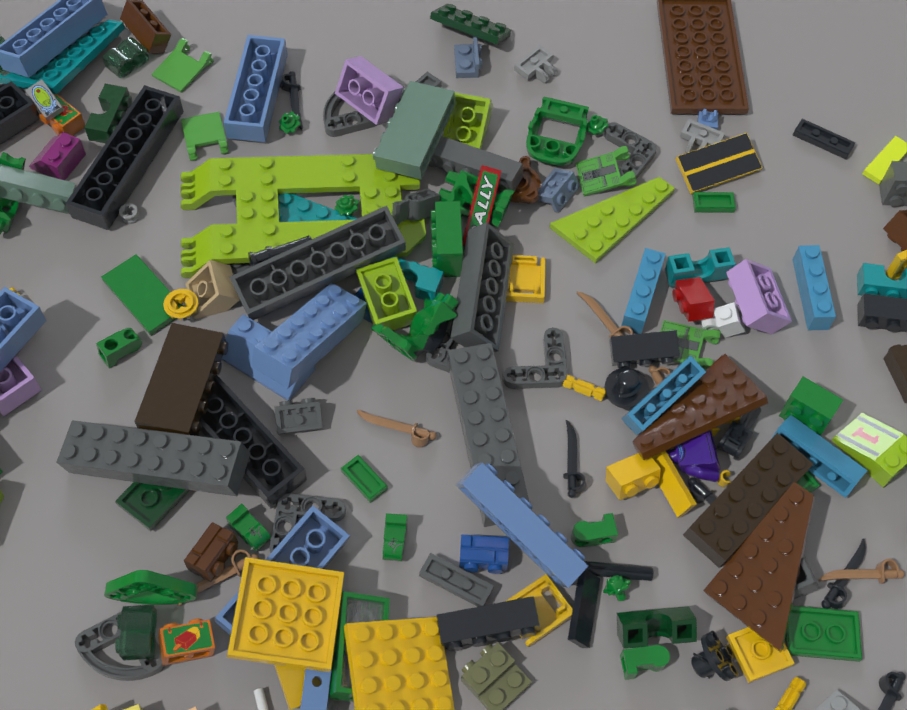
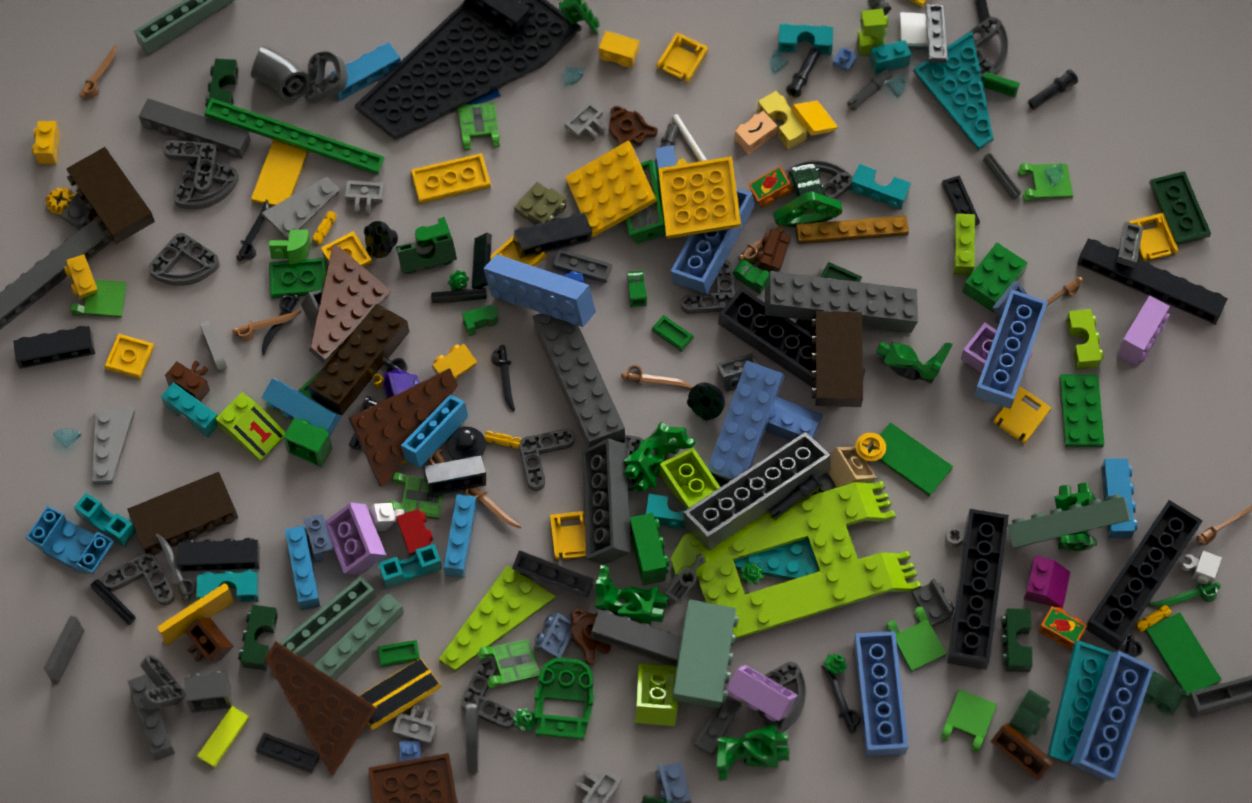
camera: 170 degrees right, 5 degrees up
(29, 608) = (891, 194): none -> teal arch
(44, 100) = (1079, 625): tile -> none
(87, 571) = (852, 229): none -> pearl gold plate
(109, 386) = (905, 361): none -> green hips
(118, 346) = (910, 403): green leg -> none
(175, 158) = (934, 602): none -> dark grey bracket
(344, 384) = (706, 401): none -> black plate
(394, 67) = (759, 743): none -> green hips
(483, 198) = (623, 584): tile -> none
(550, 236) = (553, 573): none -> black brick
(650, 108) = (472, 737): none -> dark grey beam
(673, 486) = (418, 361): yellow tile -> none
(760, 209) = (360, 637): none -> sand green brick
(792, 148) = (325, 707): none -> reddish brown wing
(793, 227) = (330, 618): none -> sand green brick
(799, 311) = (318, 536): none -> sand blue bracket
(827, 667) = (294, 249): none -> bright green brick
(855, 246) = (259, 620): none -> dark green arch

